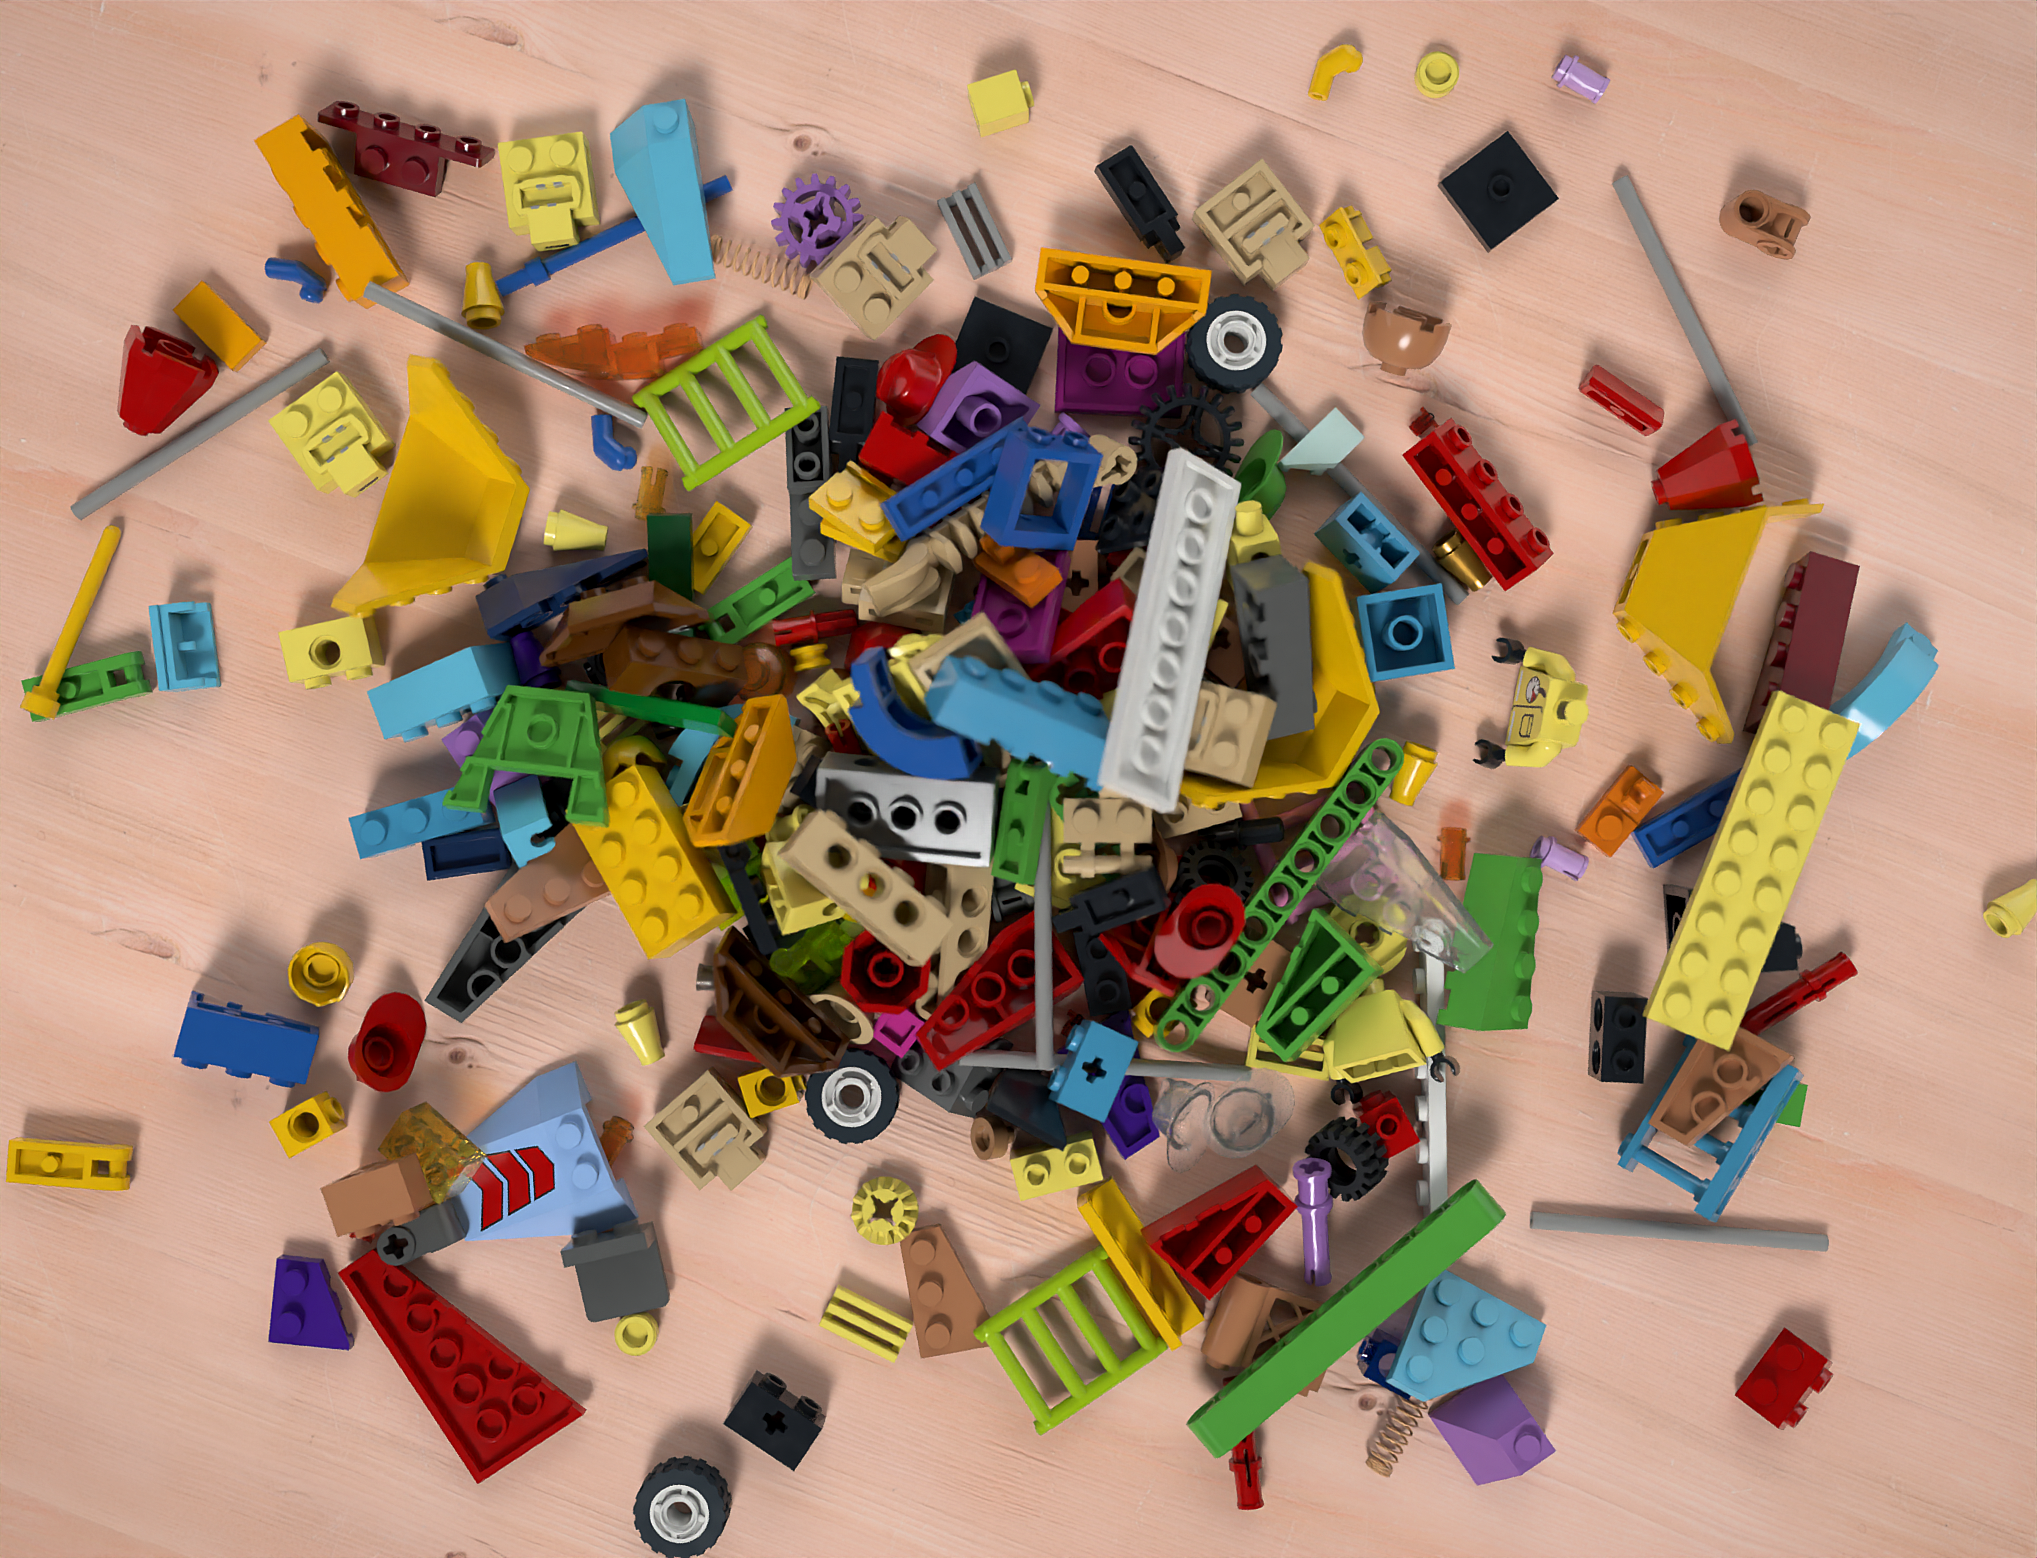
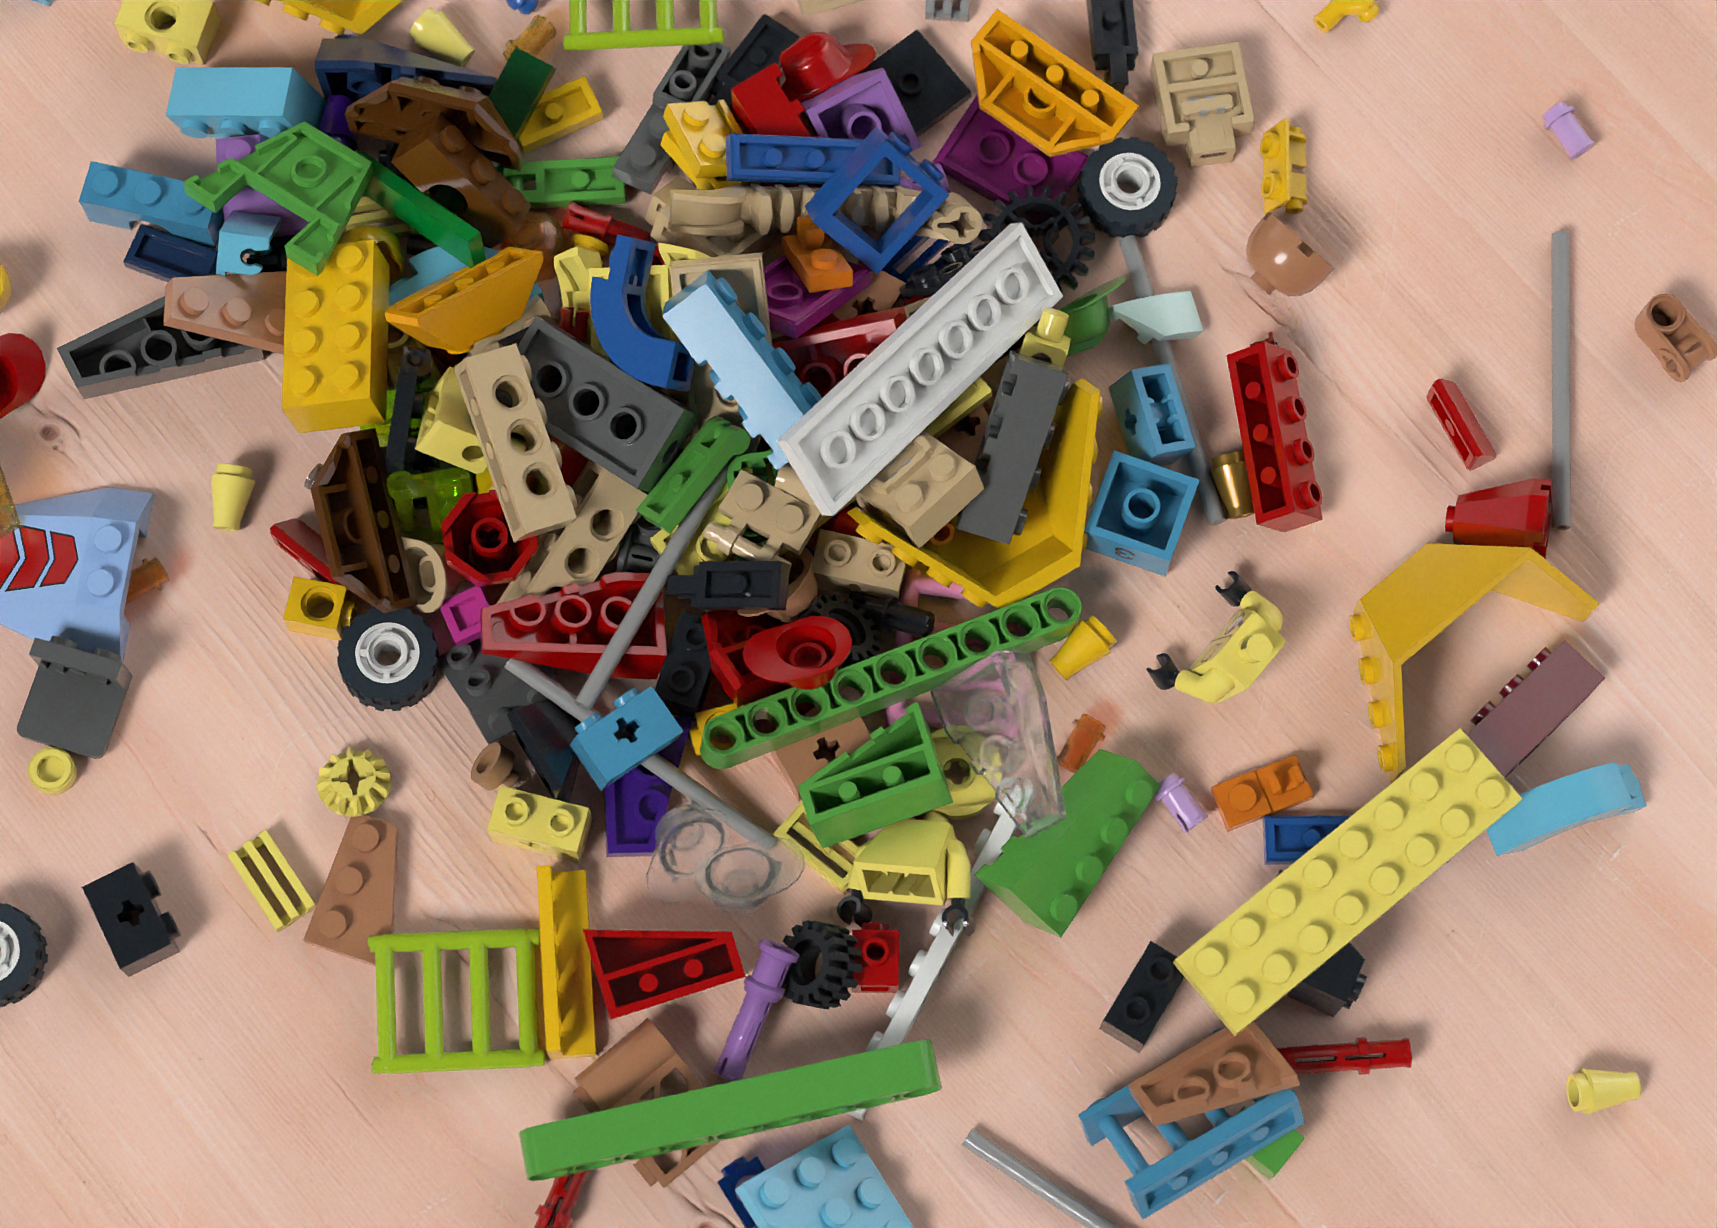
camera: 20 degrees right, 15 degrees down
(710, 1132) = (237, 618): tan piece -> none
(1436, 74) = (1439, 62): light yellow tile -> none
(1497, 191) = (1441, 187): black plate -> none

